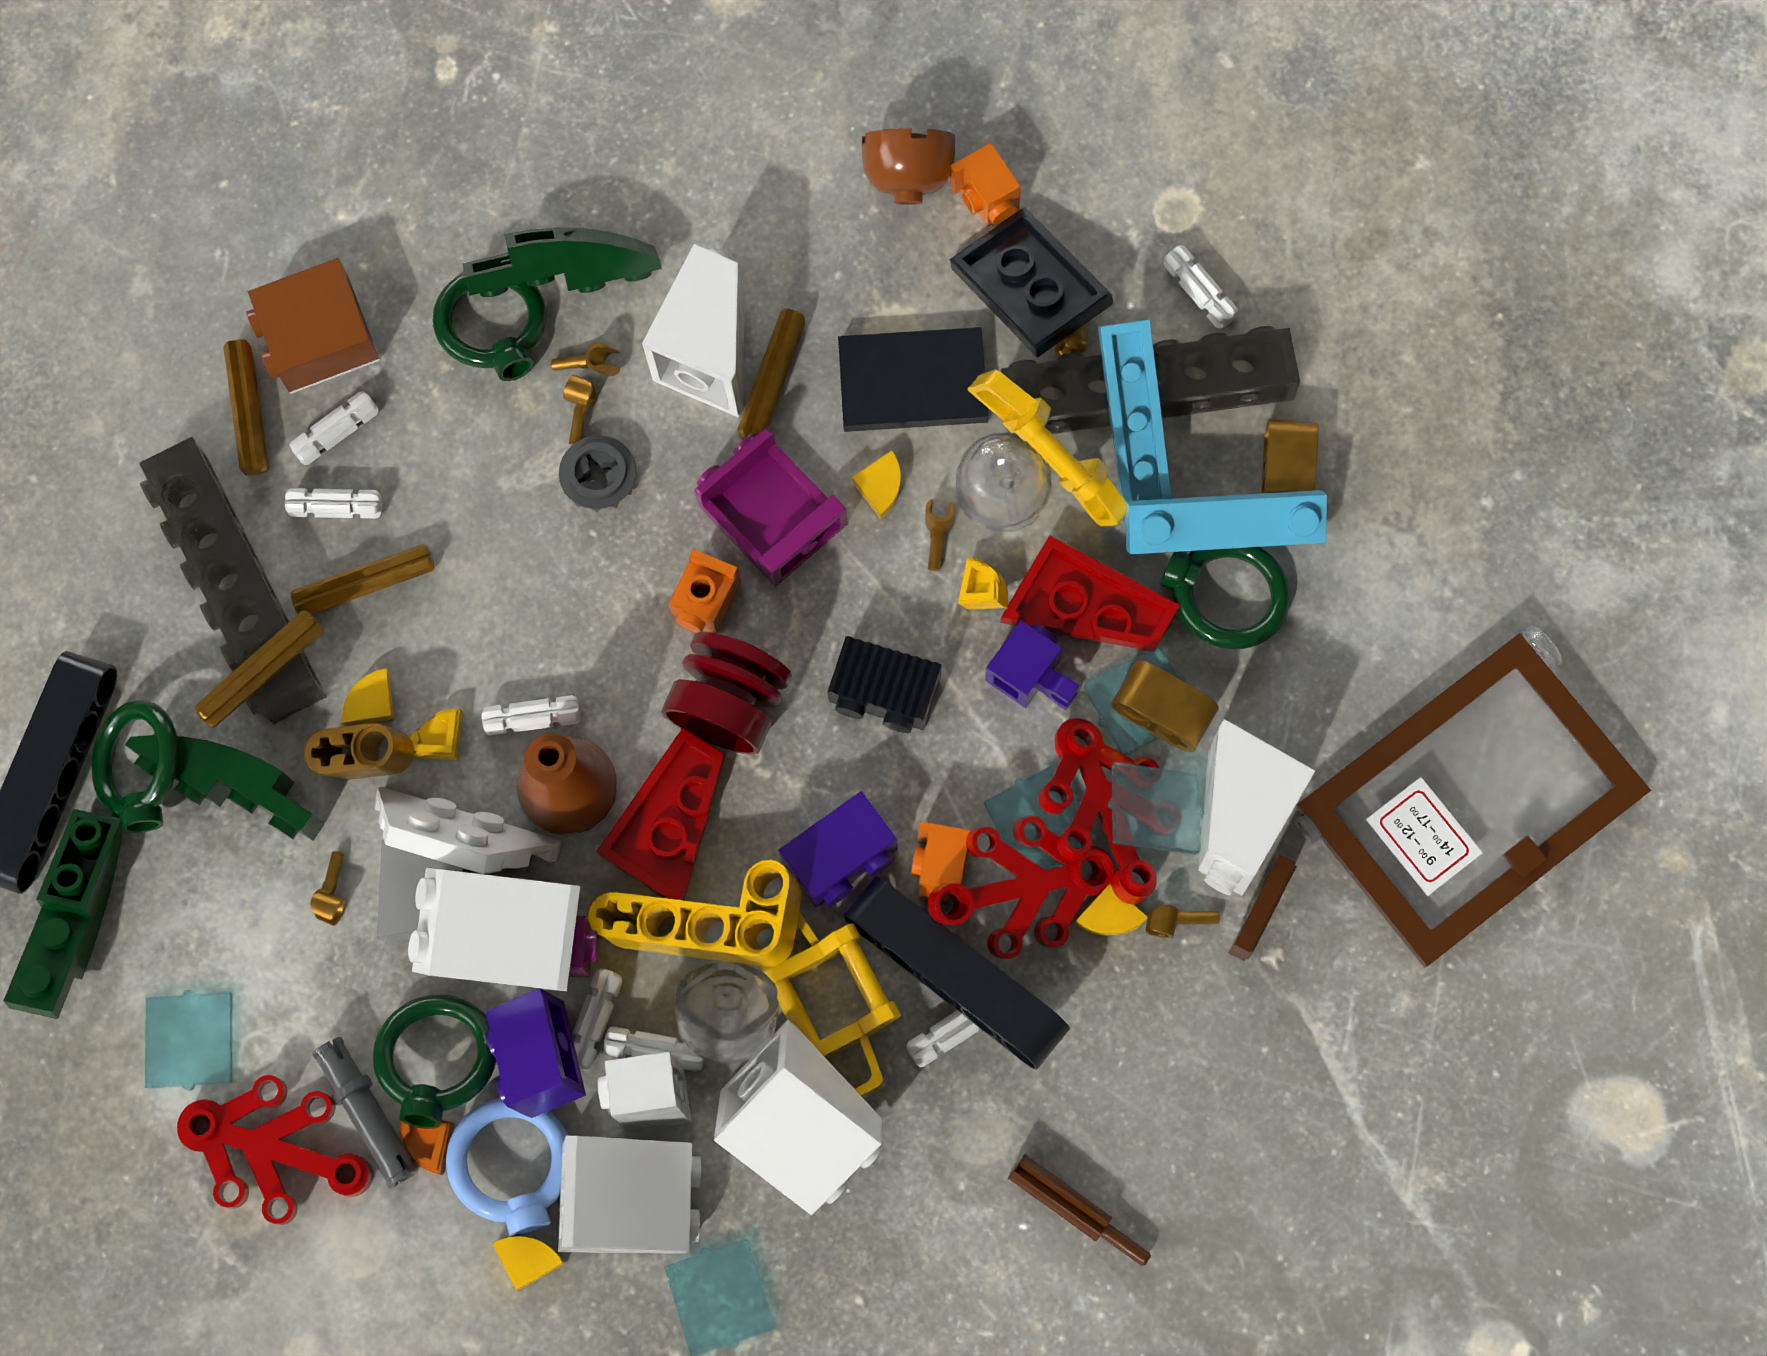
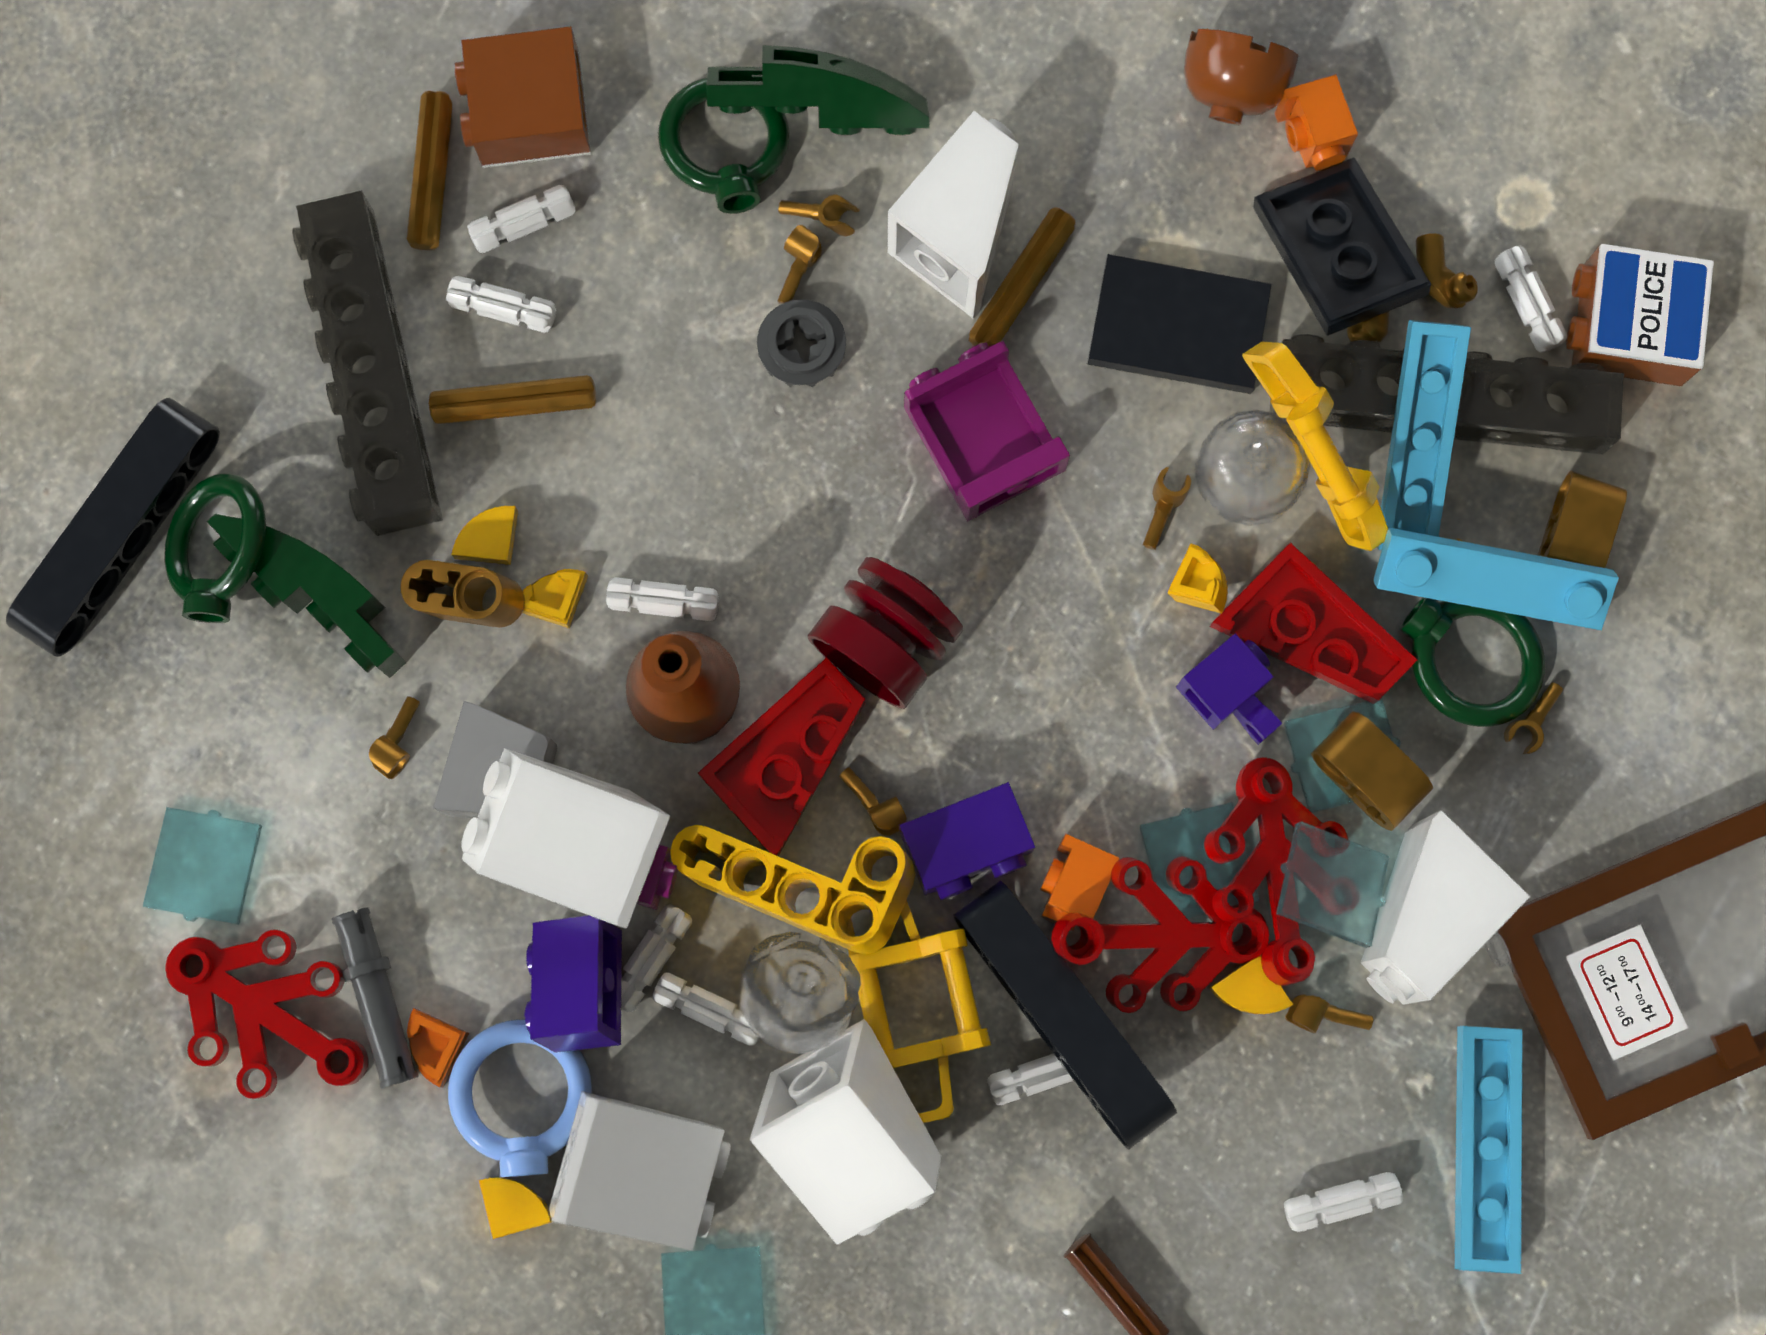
camera: 10 degrees right, 5 degrees up
(70, 914) = (105, 696): dark green slope -> none
(258, 669) = (372, 474): pearl gold axle -> none
(423, 1103) = (442, 1008): dark green piece -> none
(457, 837) = (547, 718): white wing -> none
(645, 1091) = (685, 1064): white brick -> none
(706, 612) = (887, 533): orange brick -> none
(763, 848) = (884, 816): none -> pearl gold hand
(880, 484) = (1113, 434): yellow tile -> none
(884, 685) = (1062, 665): black brick -> none
(1126, 293) = (1446, 287): none -> pearl gold arm
(1232, 1071) = (1343, 1201): none -> white axle
(1263, 908) = (1424, 1028): reddish brown tile -> none
(1292, 628) = (1535, 718): none -> pearl gold hand
(1293, 276) = (1641, 313): none -> piece
(1342, 996) = (1488, 1150): none -> medium azure plate

